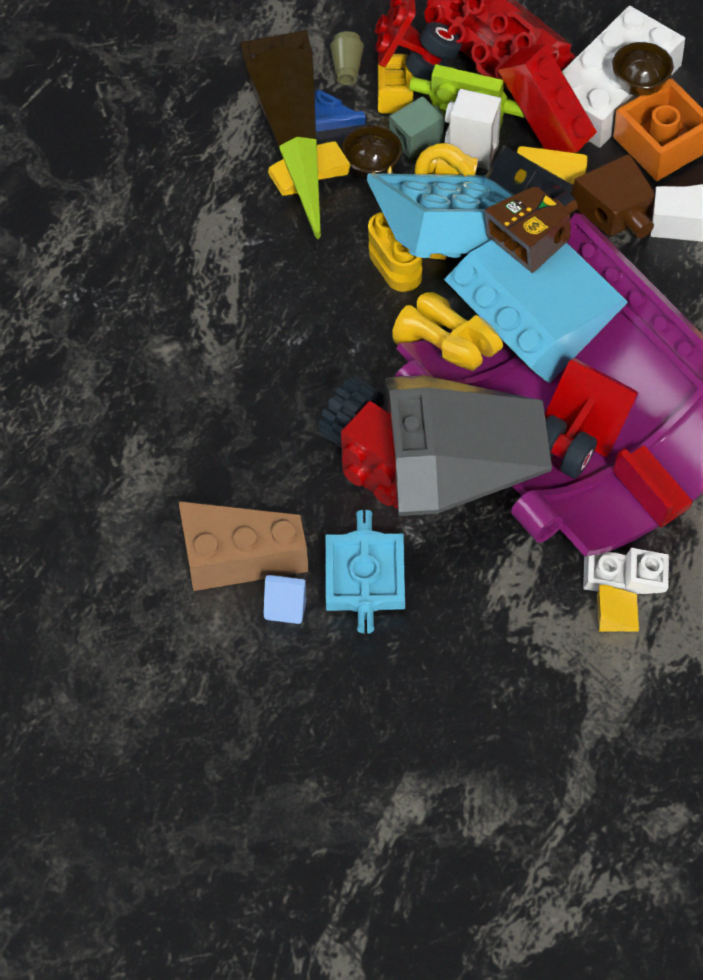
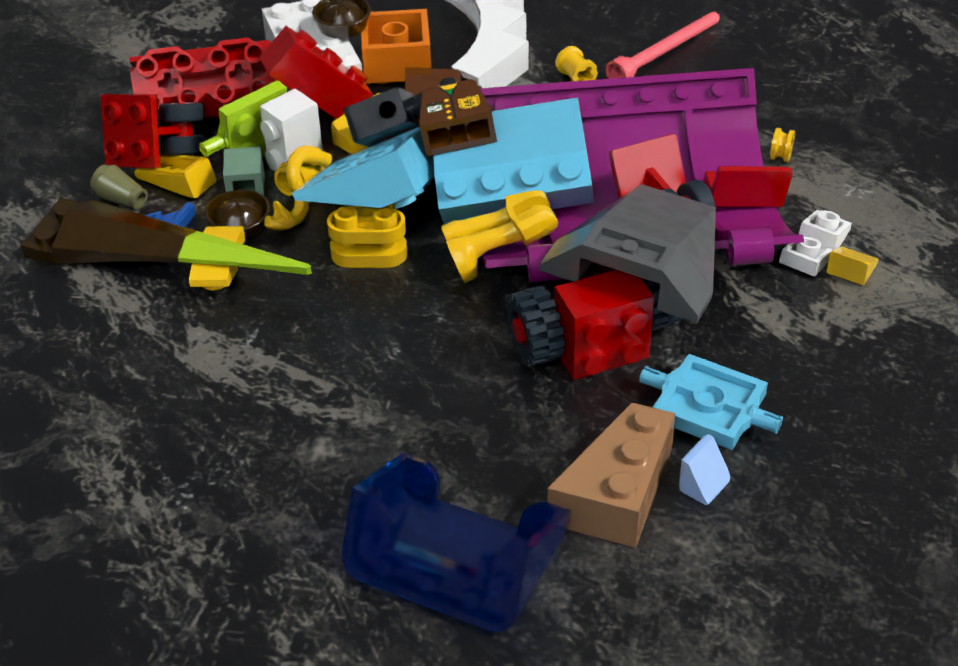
camera: 60 degrees left, 15 degrees down
(113, 468) = (443, 553): none -> clear blue windscreen

